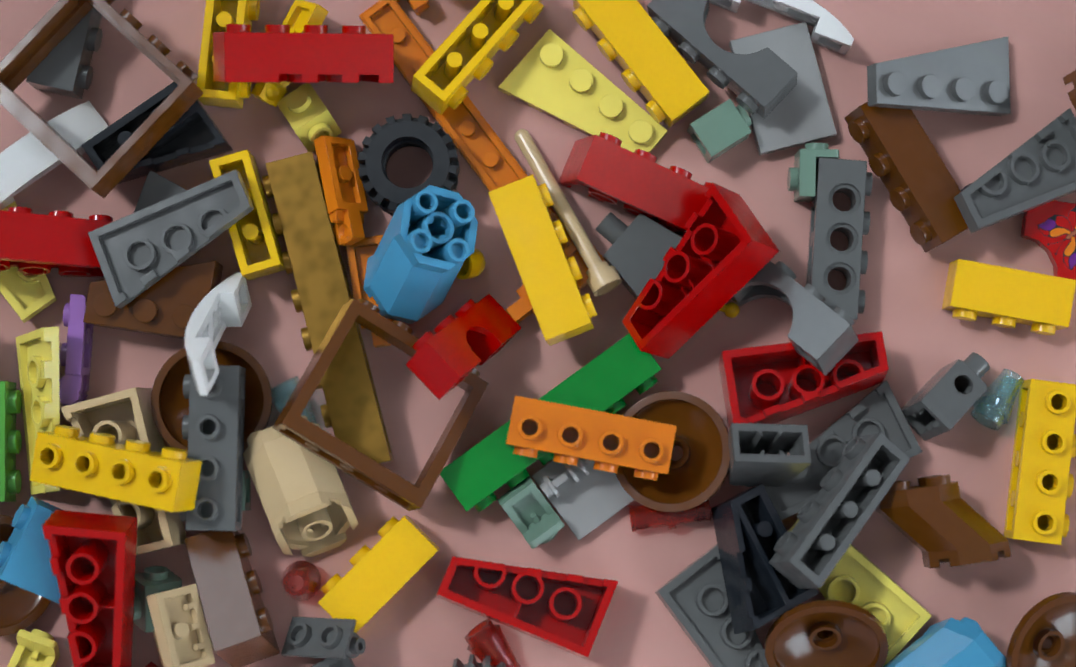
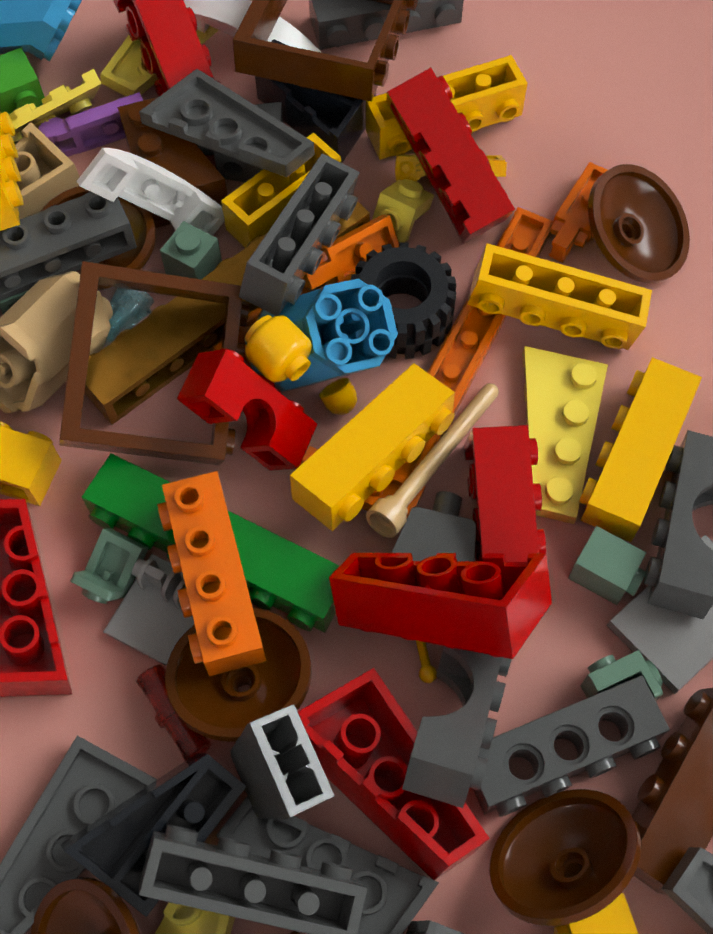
camera: 65 degrees right, 20 degrees down
(272, 324) = (190, 252): none -> sand green brick
(328, 226) = (298, 235): none -> dark grey brick
(430, 297) = (278, 348): none -> yellow head
(899, 291) = (565, 857): none -> reddish brown dish

